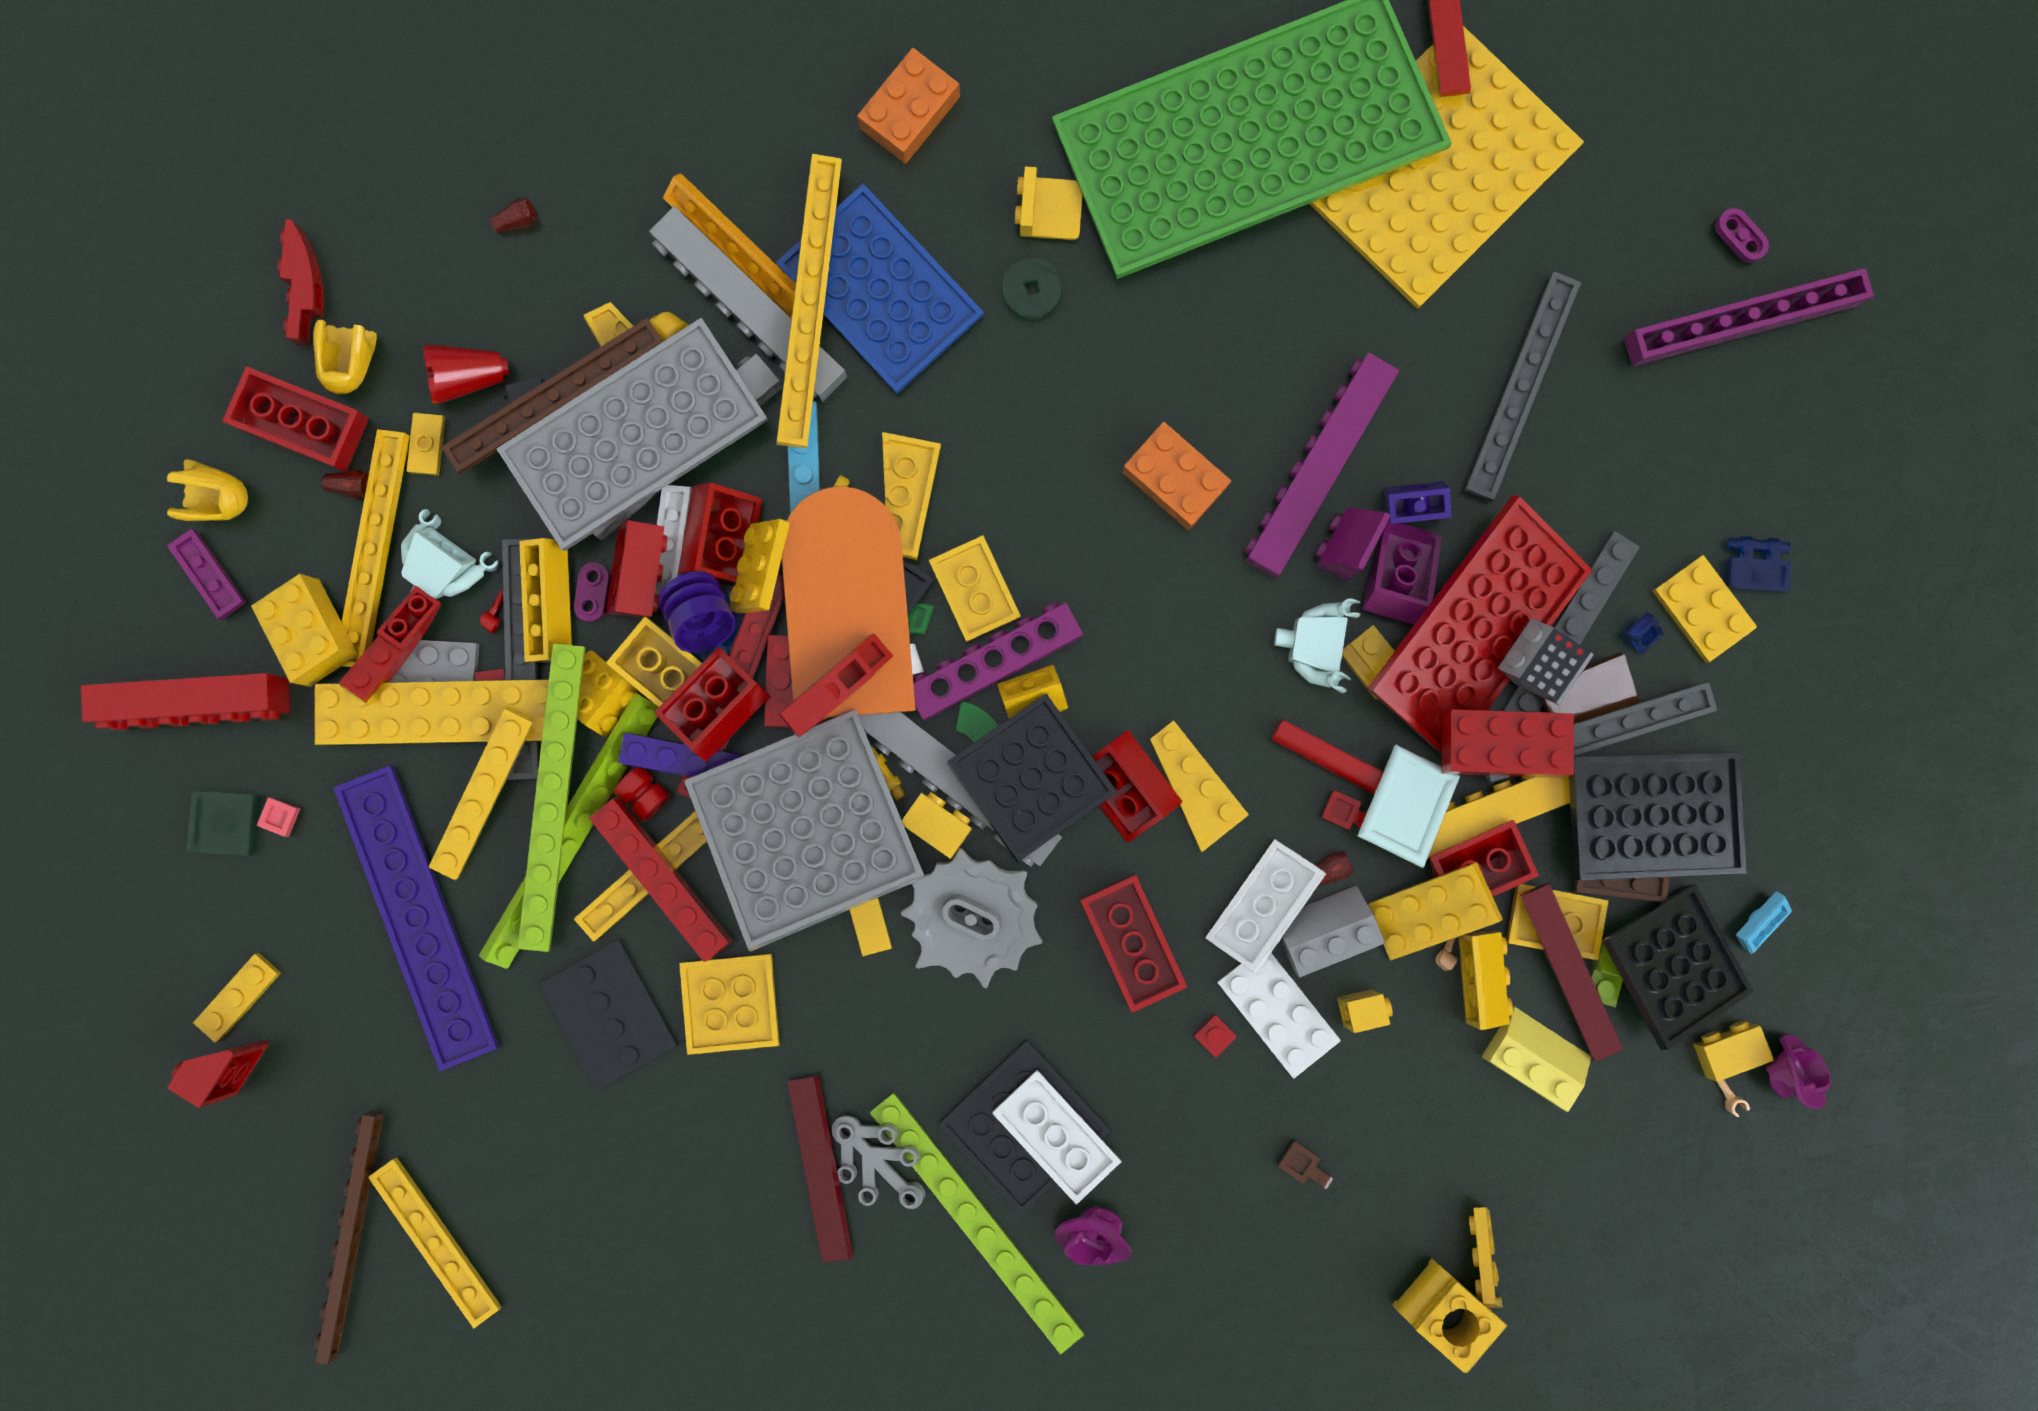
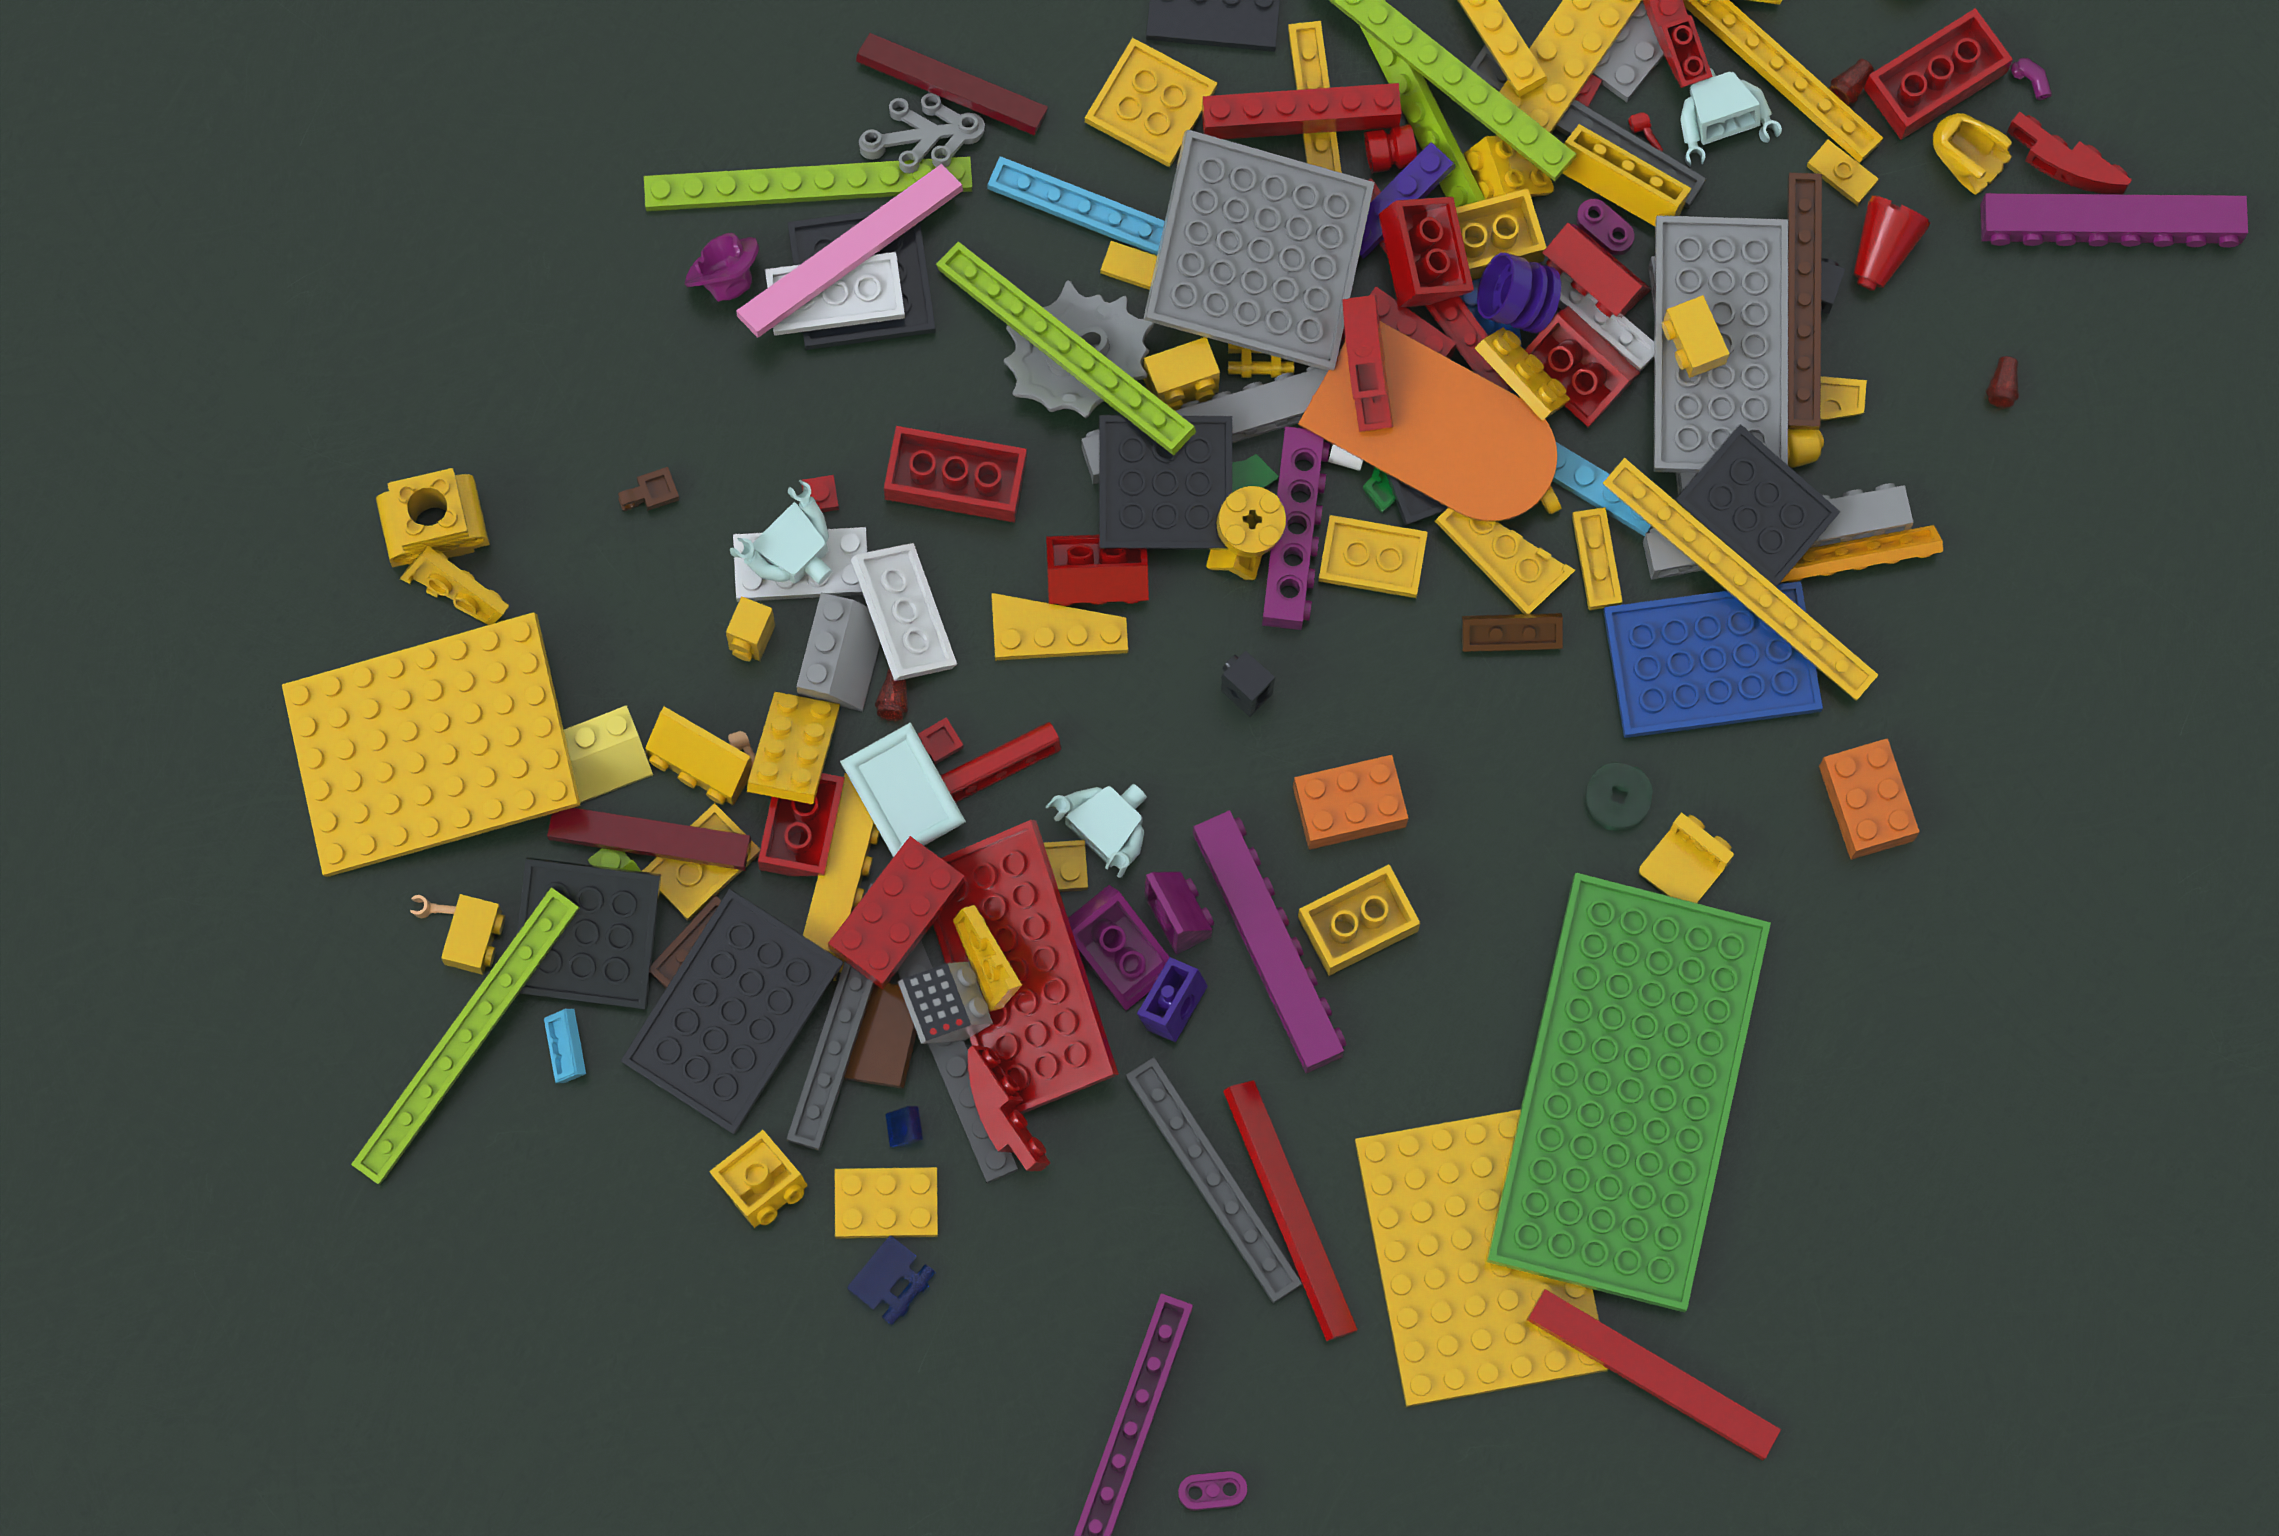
camera: 125 degrees right, 10 degrees down
(247, 349) = (2035, 74): none -> magenta arm
(325, 217) = (2114, 219): none -> magenta brick
(642, 451) = (1695, 337): none -> yellow brick
(744, 321) = (1757, 505): none -> black plate
(852, 1001) = (1076, 205): none -> medium azure plate
(861, 423) = (1597, 558): none -> yellow plate
(962, 446) = (1512, 632): none -> reddish brown plate
(980, 925) = (1066, 348): none -> lime plate
(1018, 1149) = (849, 250): none -> bright pink tile
(1023, 671) = (1236, 533): none -> yellow brick
(1143, 611) = (1247, 682): none -> black brick
(1262, 408) = (1358, 920): none -> yellow brick
(1279, 1027) = (791, 543): none -> light aqua torso
(1494, 653) = (987, 960): none -> yellow wing
(1505, 317) = (1290, 1210): none -> red tile
(1587, 576) = (995, 1101): none -> red slope
(1621, 1187) = (430, 745): none -> yellow plate
(1759, 709) = (759, 1179): none -> yellow plate
(1799, 1073) = (412, 975): magenta hat -> none
(1817, 998) = (465, 1036): none -> lime plate

